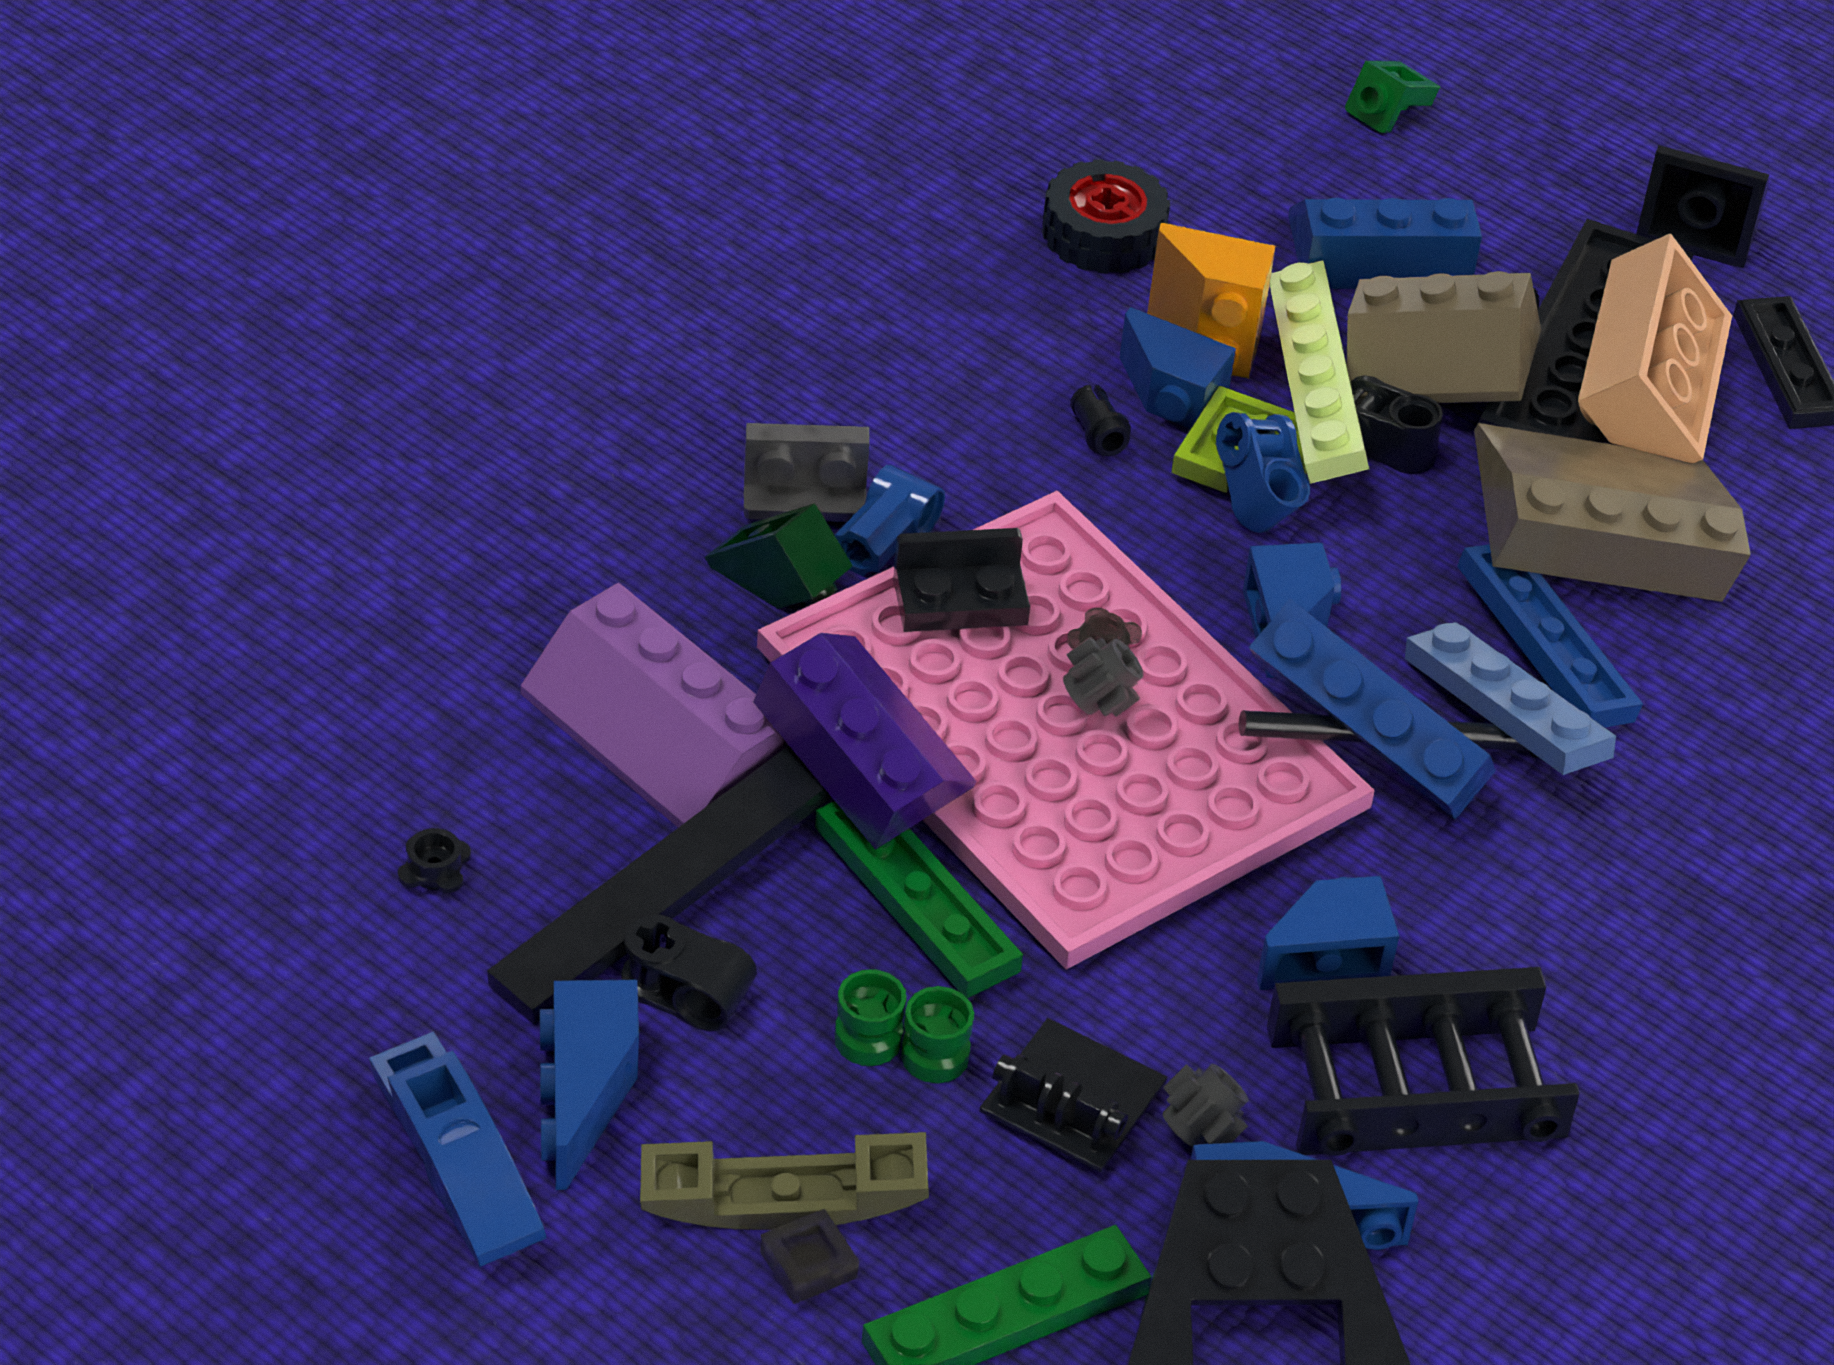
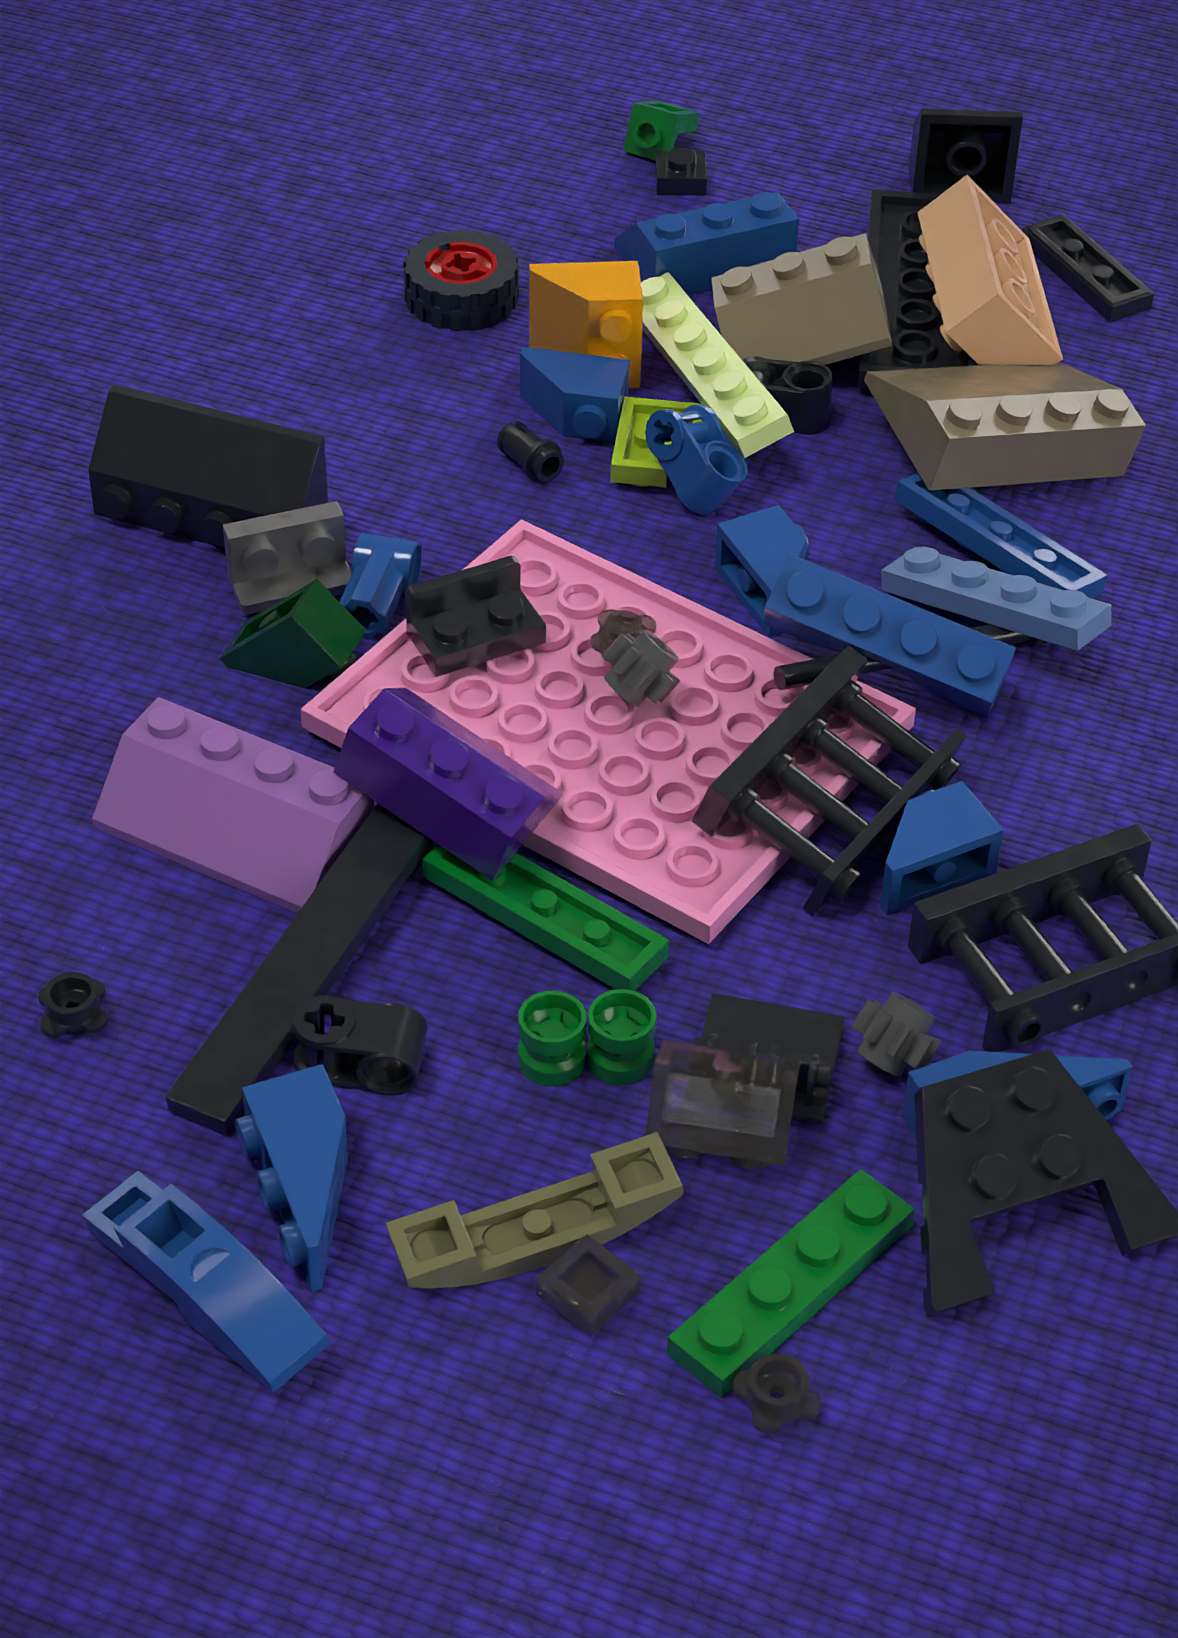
camera: 15 degrees left, 0 degrees up
(750, 356) = (198, 466): none -> black slope
(1002, 1123) = (722, 1103): none -> clear smoke window
(1244, 777) = (805, 726): none -> black fence
(1393, 149) = (681, 172): none -> black plate

